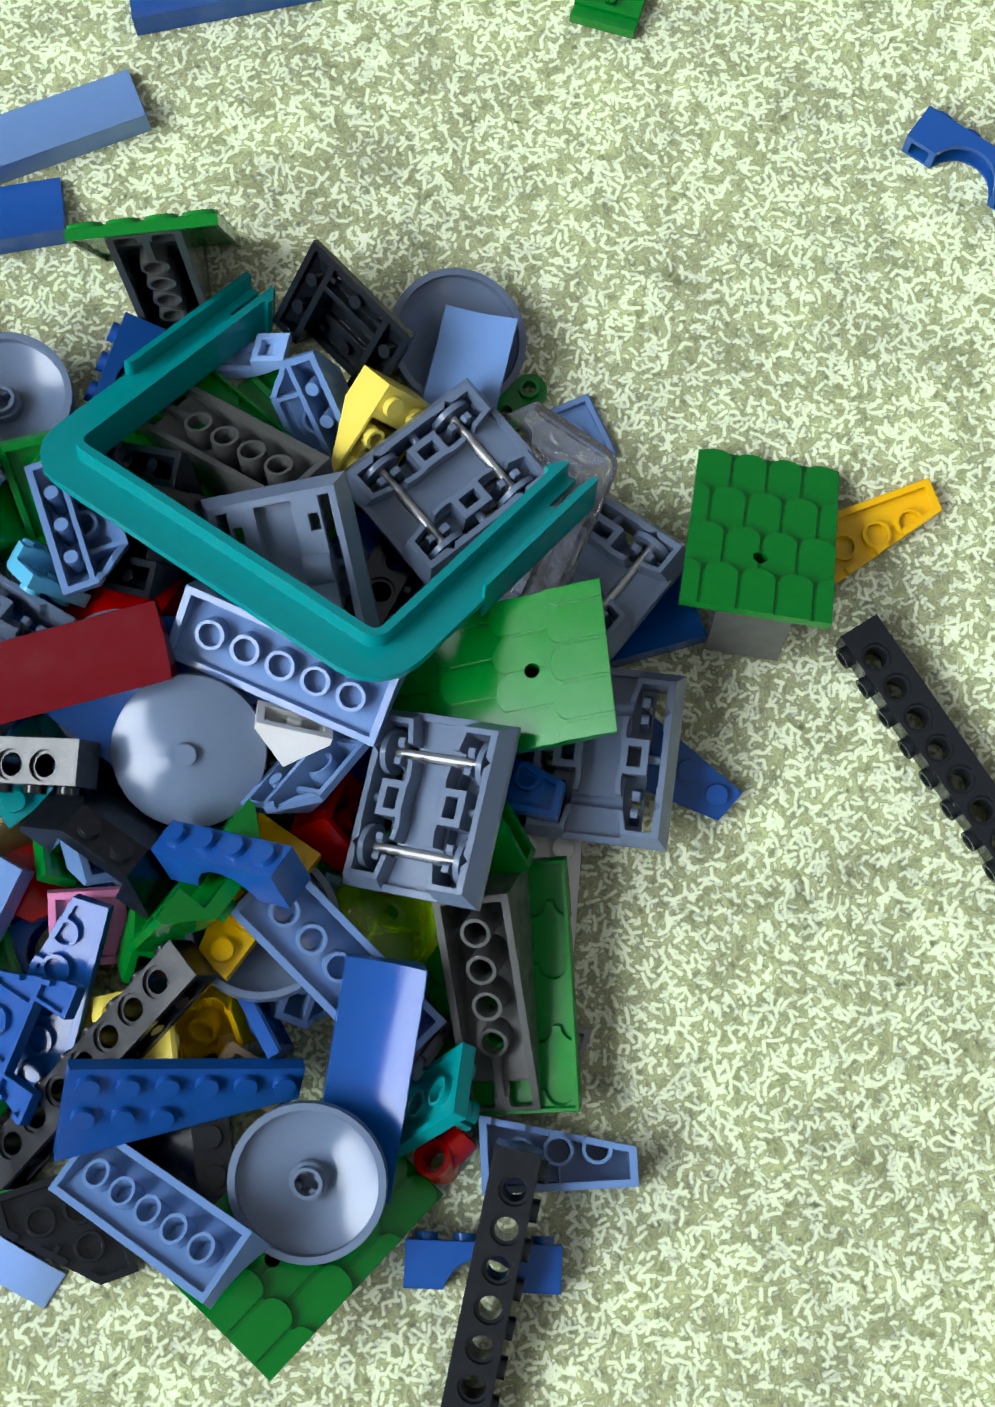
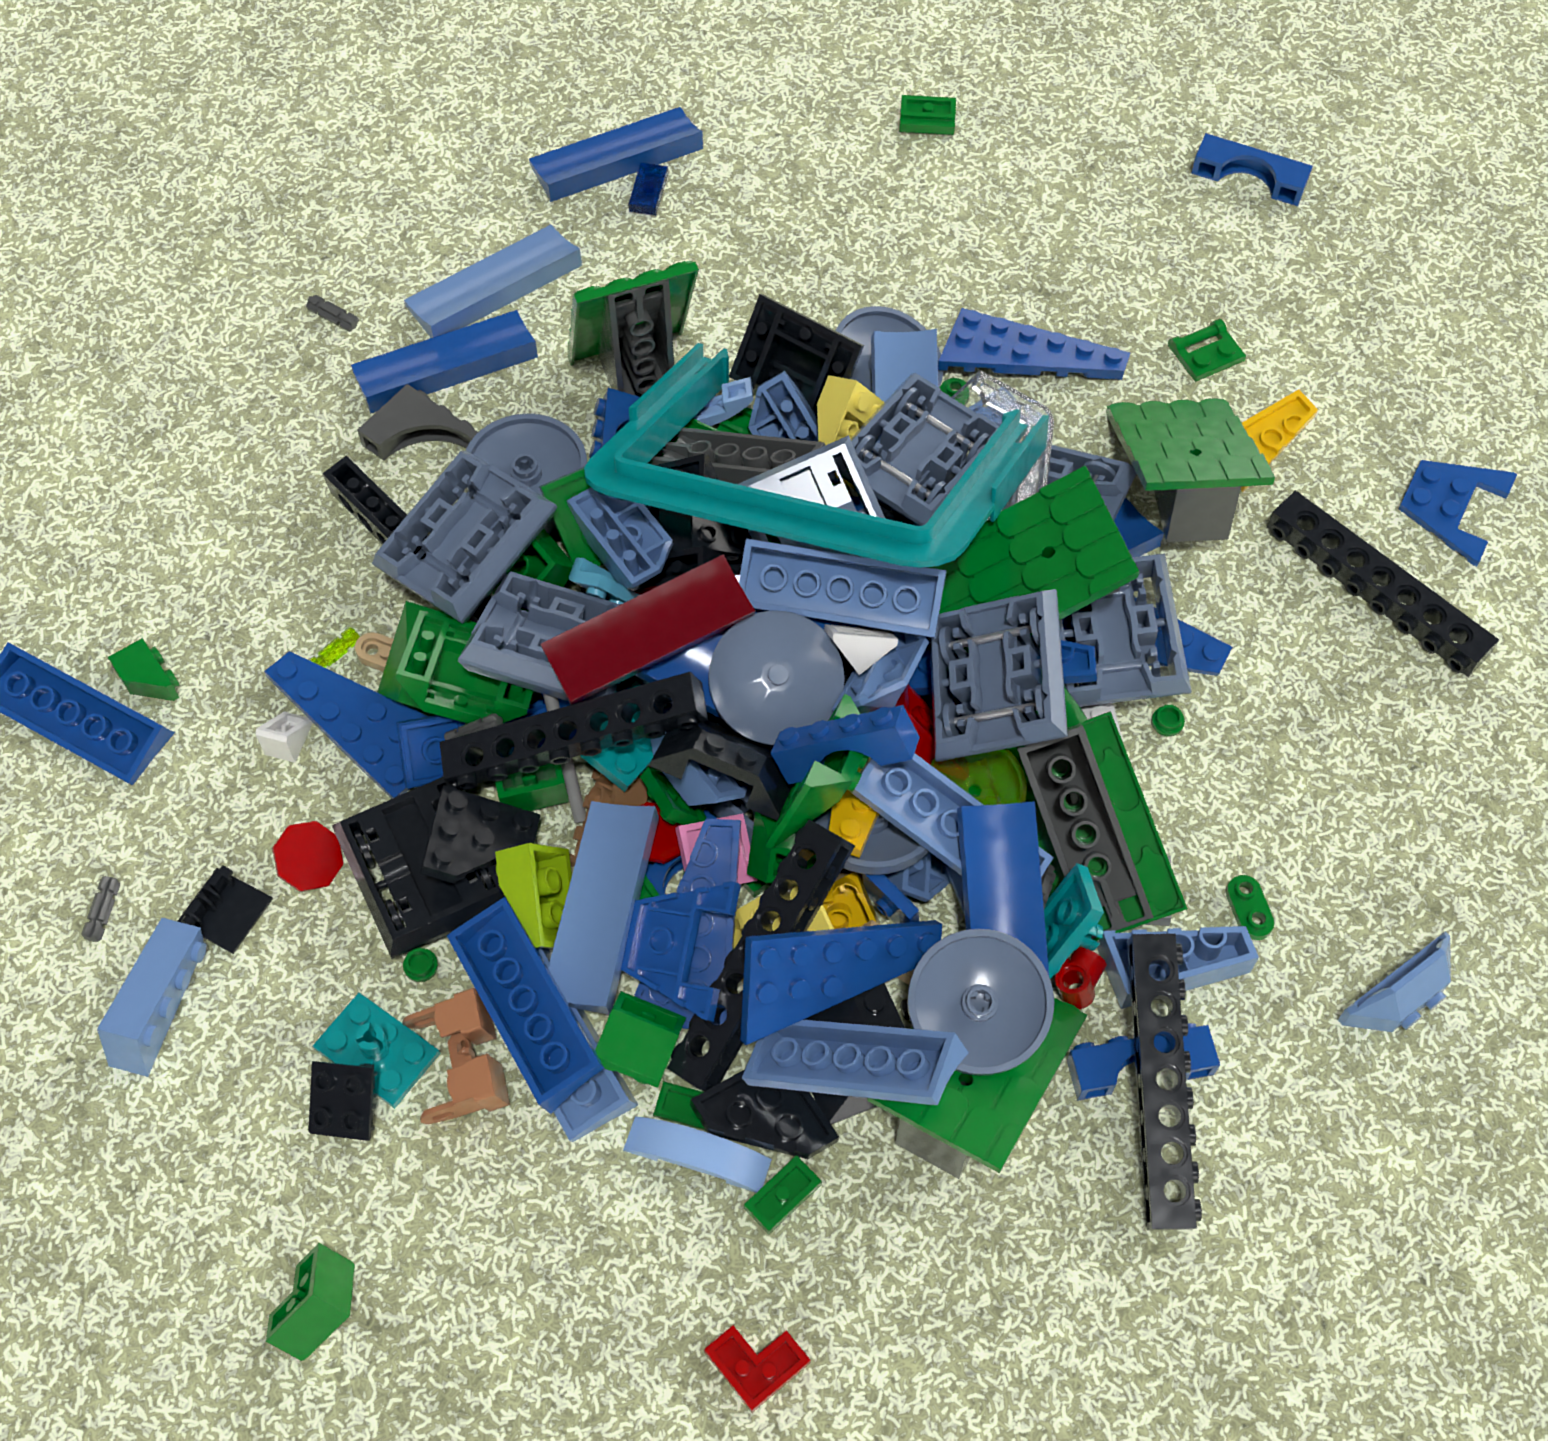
camera: 15 degrees left, 15 degrees down
(63, 1318) = (782, 1194): none -> green plate
(251, 43) = (648, 189): none -> clear blue plate
(618, 351) = (1026, 350): none -> blue wing
(642, 865) = (1168, 720): none -> green plate
(660, 1110) = (1250, 905): none -> green plate
(797, 1252) = (1405, 991): none -> medium blue wedge
(842, 409) = (1209, 358): none -> green plate

